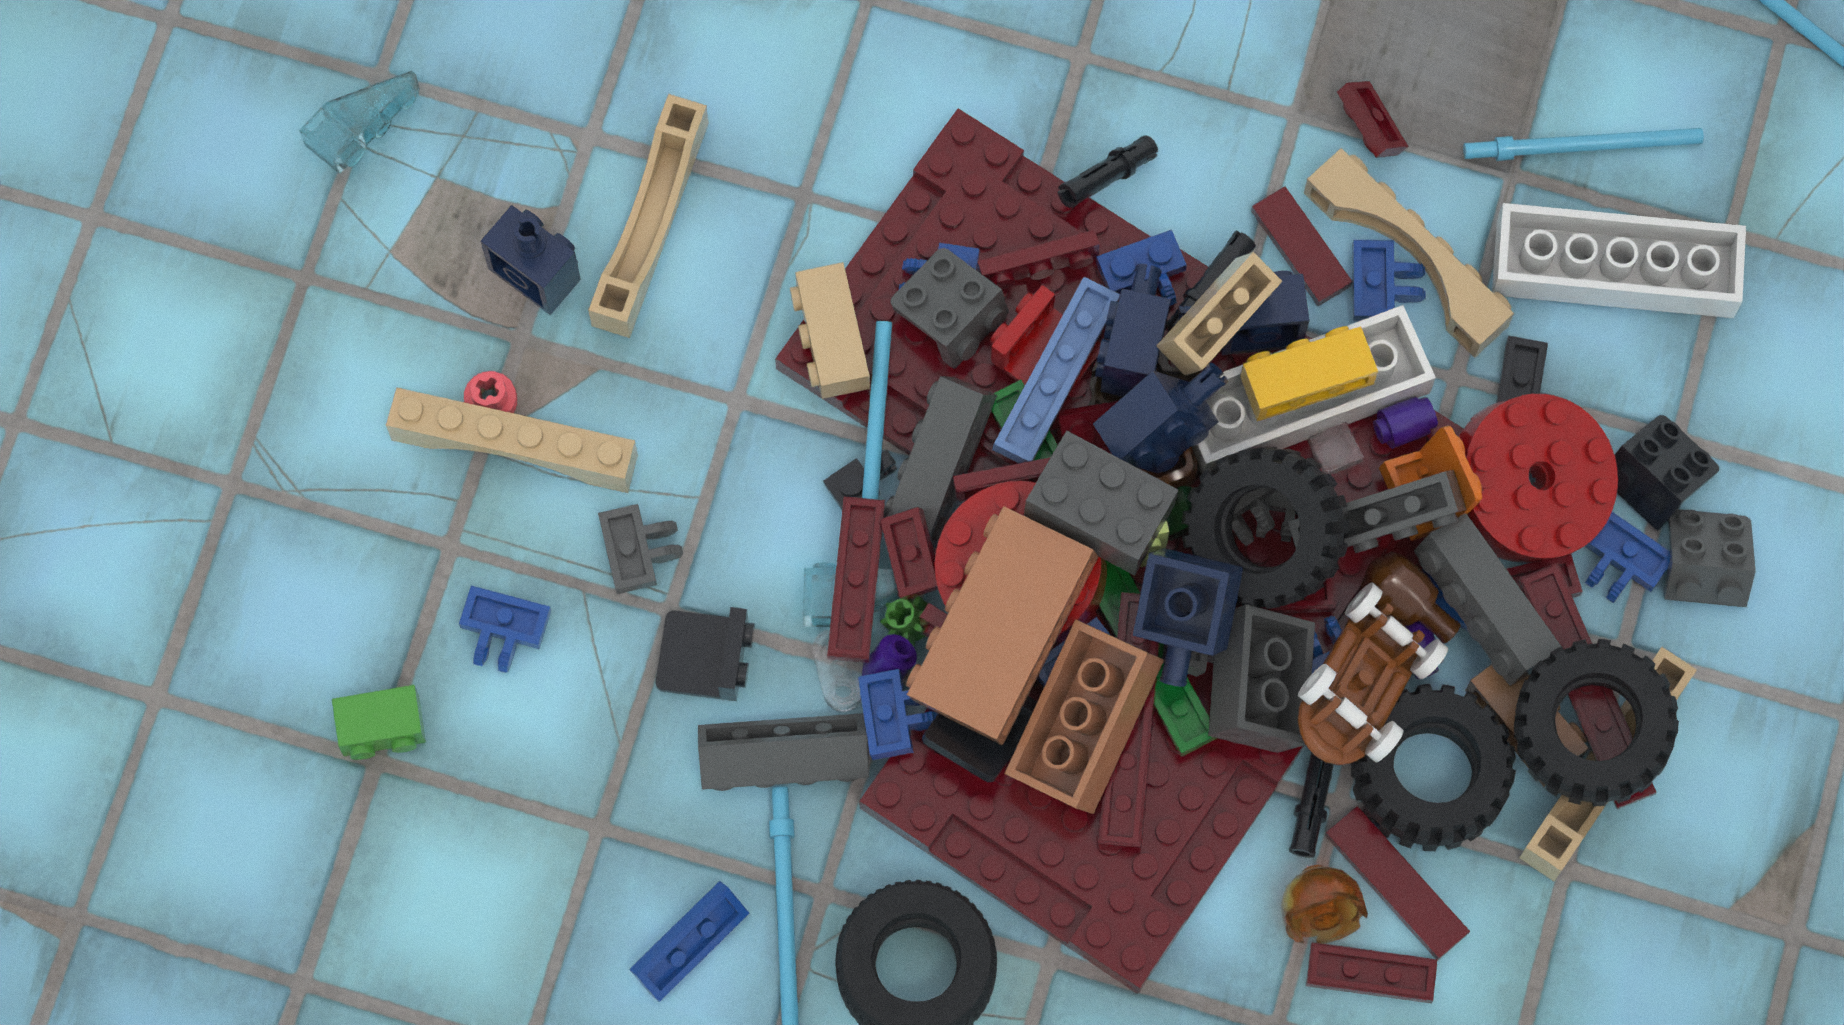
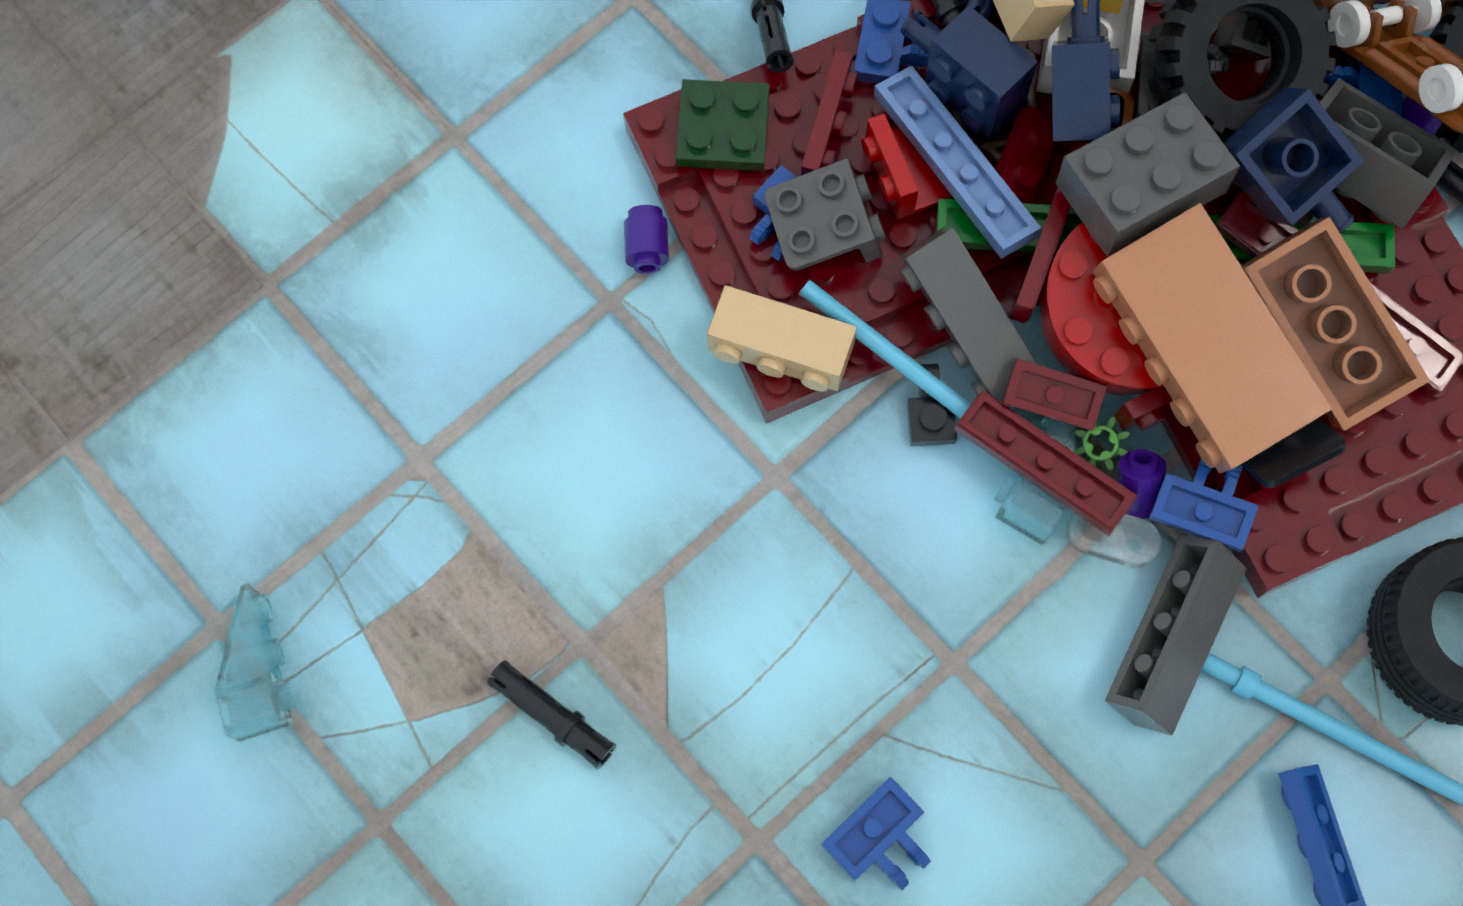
camera: 55 degrees left, 0 degrees up
(451, 361) = (560, 721): none -> black pin
(453, 424) = (689, 711): tan arch -> none
(506, 394) = (646, 711): coral piece -> none
(531, 258) = (516, 581): dark blue brick -> none
(628, 547) = (871, 663): dark grey hinge -> none
(641, 243) = (543, 446): tan arch -> none
(704, 654) = (1027, 651): black bracket -> none
(866, 189) = (646, 239): none -> dark purple brick
(989, 186) = (722, 125): none -> dark green plate

